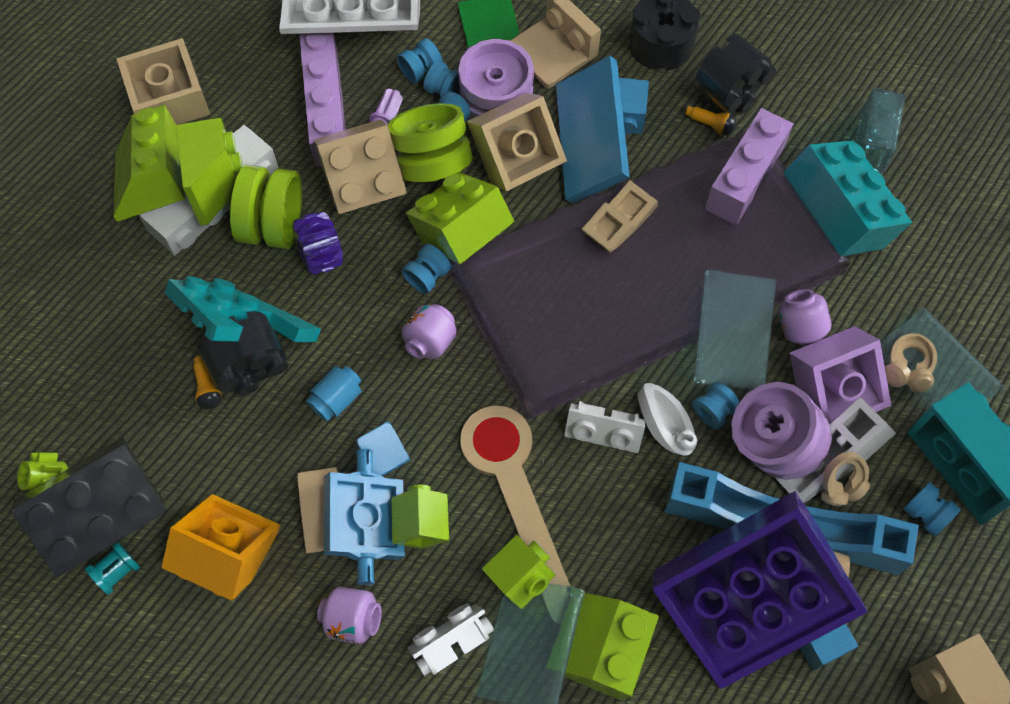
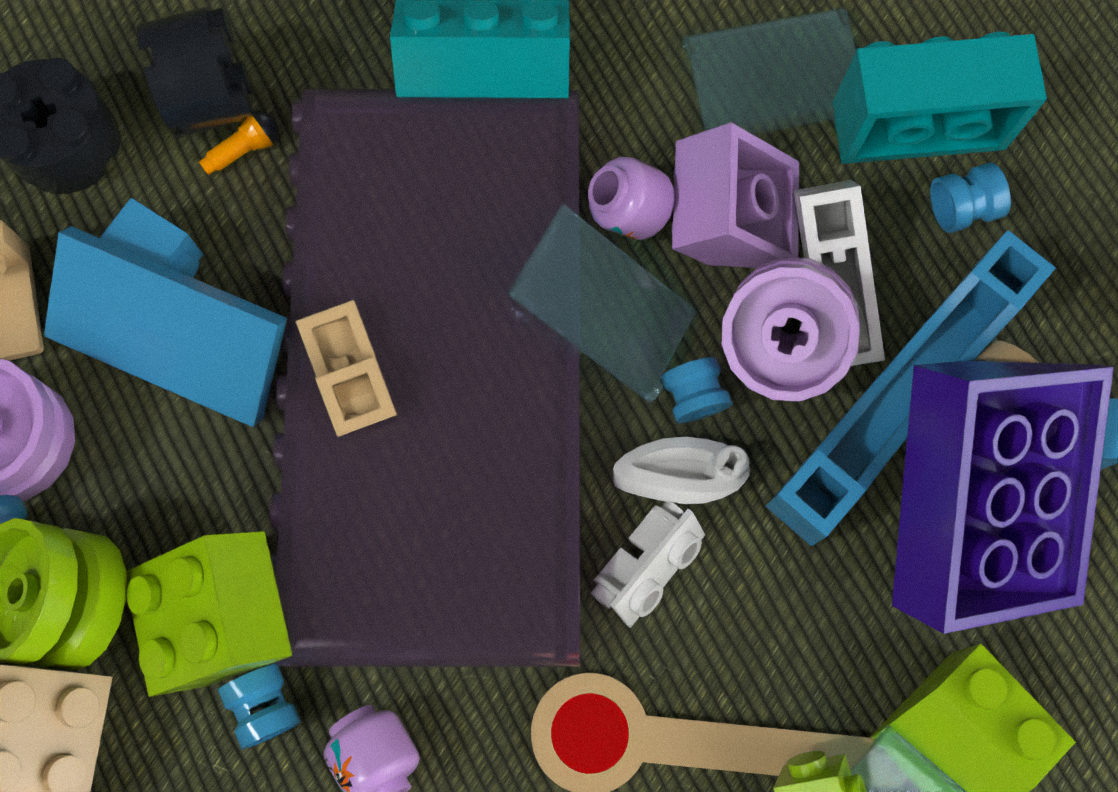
camera: 65 degrees left, 10 degrees up
(517, 141) = (120, 453): tan brick -> none
(747, 166) = (372, 136): lavender arch -> none
(854, 489) = (888, 282): tan piece -> none
(898, 372) = (764, 124): tan piece -> none

